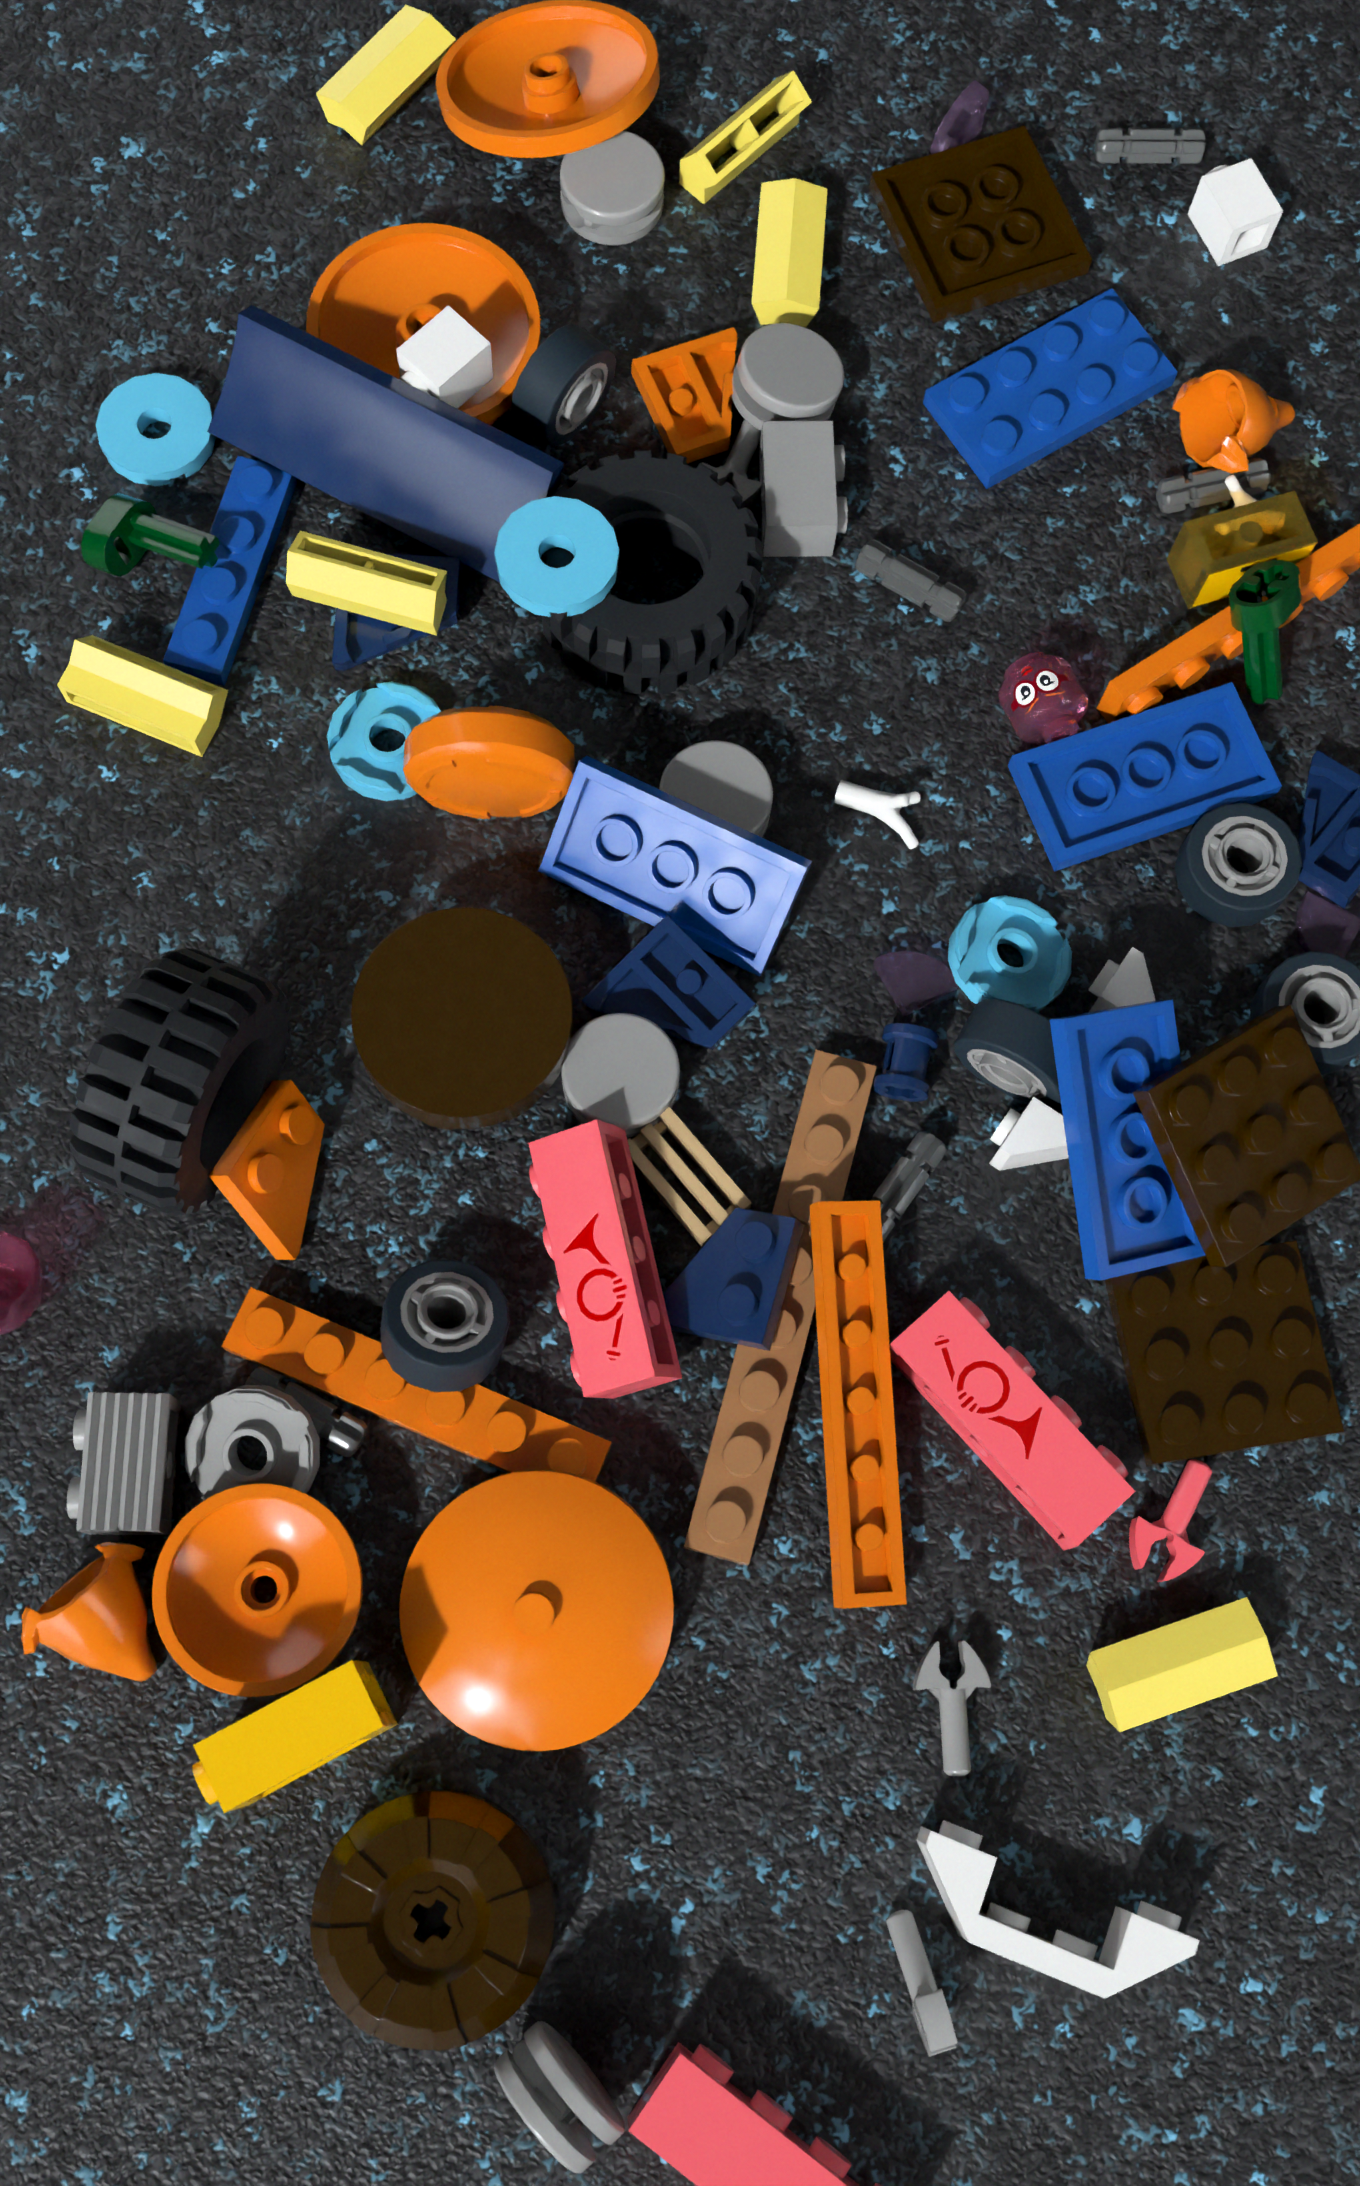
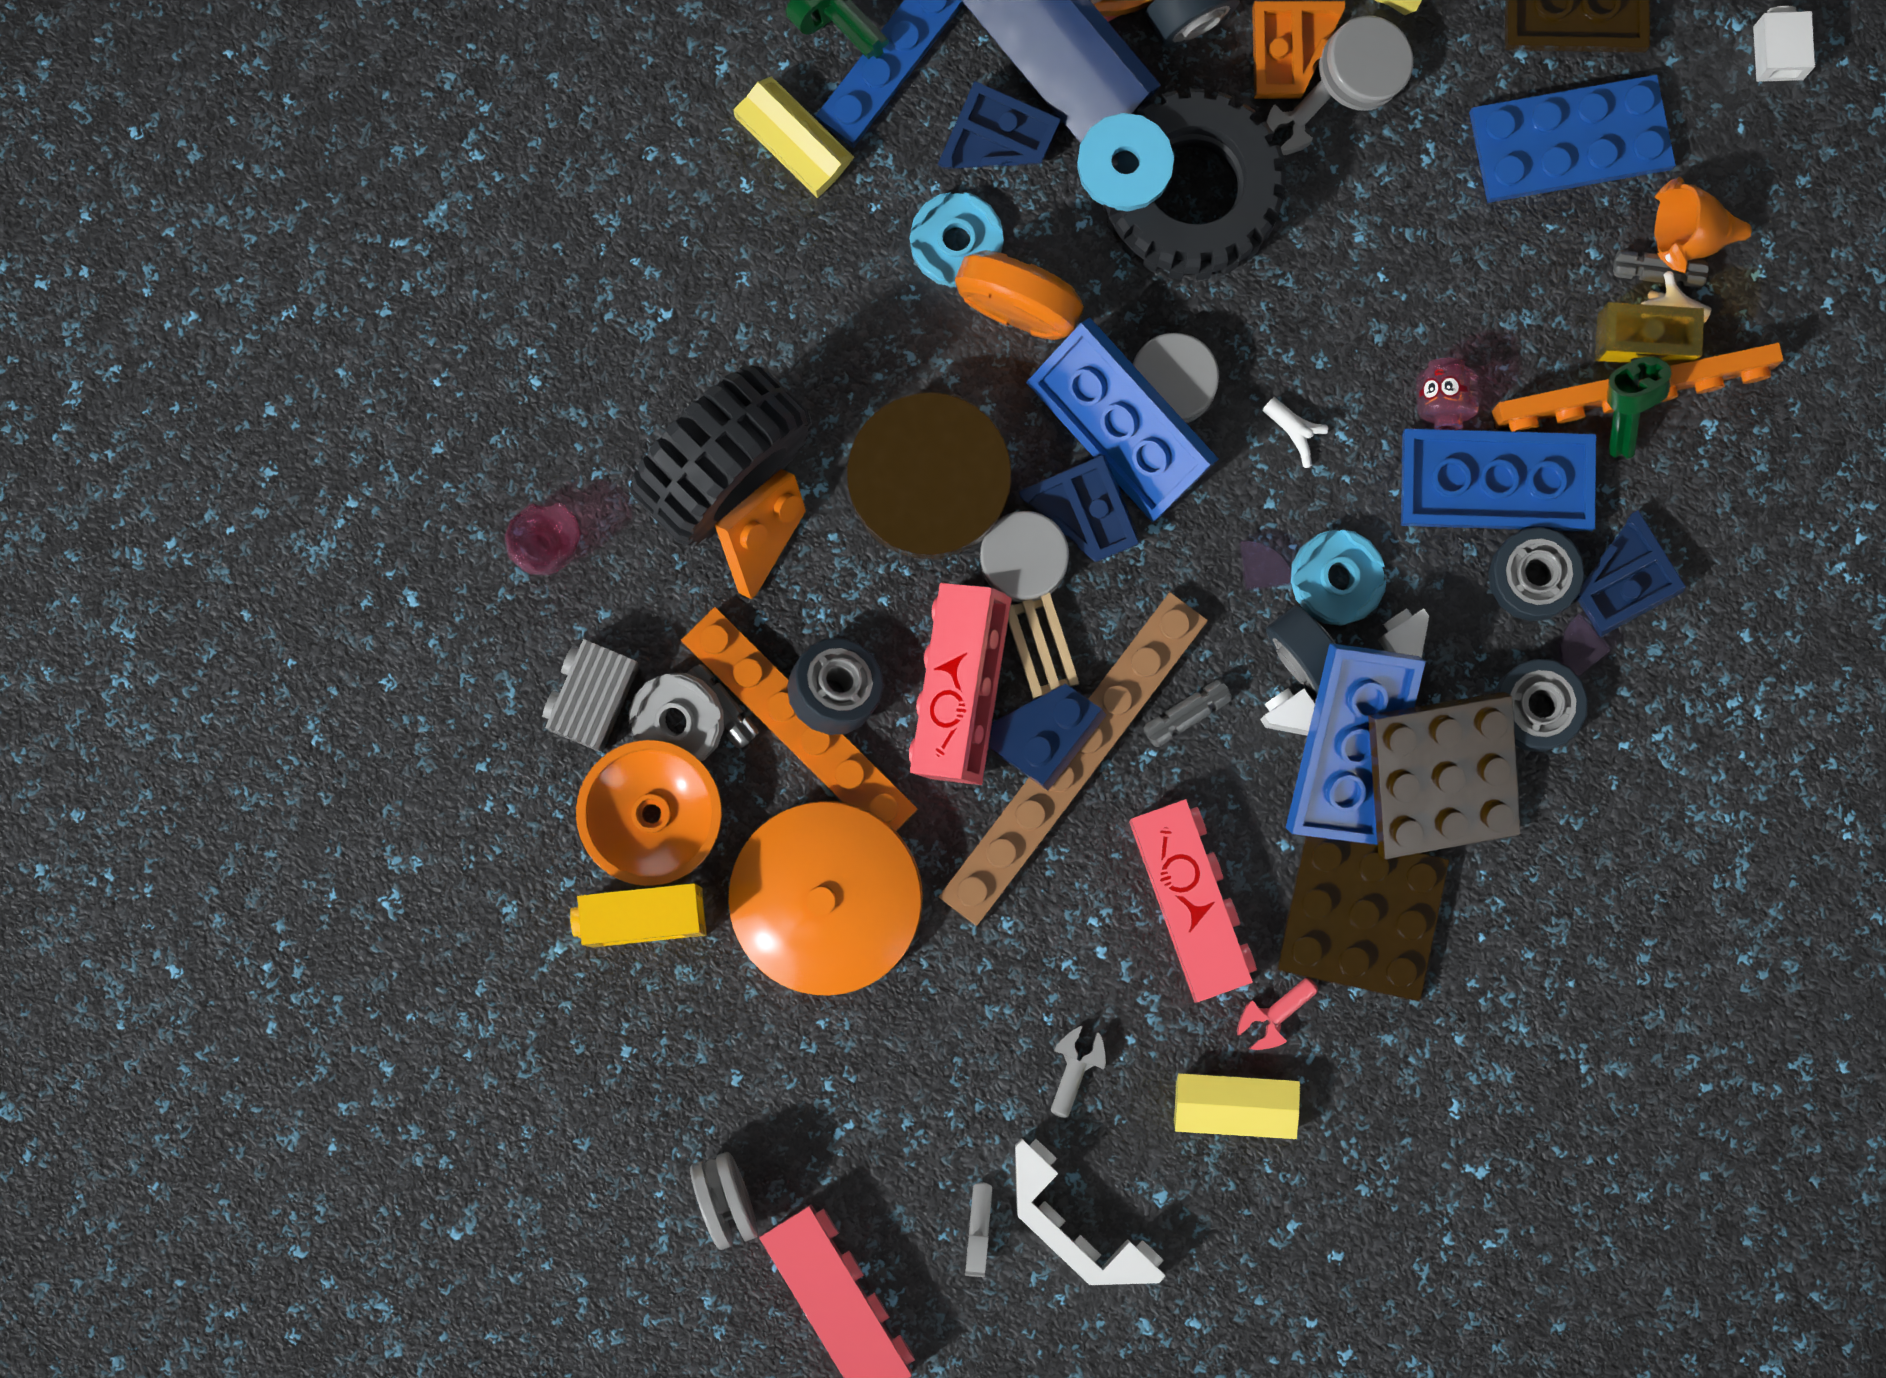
camera: 30 degrees right, 10 degrees up
(97, 1617) = (539, 787): orange hat -> none
(366, 582) = (984, 117): light yellow piece -> none
(433, 1919) = (686, 1064): dark brown piece -> none
(799, 488) = (1338, 155): light grey brick -> none
(857, 1405) = (1093, 848): orange plate -> none
(906, 1062) = (1229, 626): dark blue bush -> none
(910, 580) = (1393, 259): dark grey axle -> none

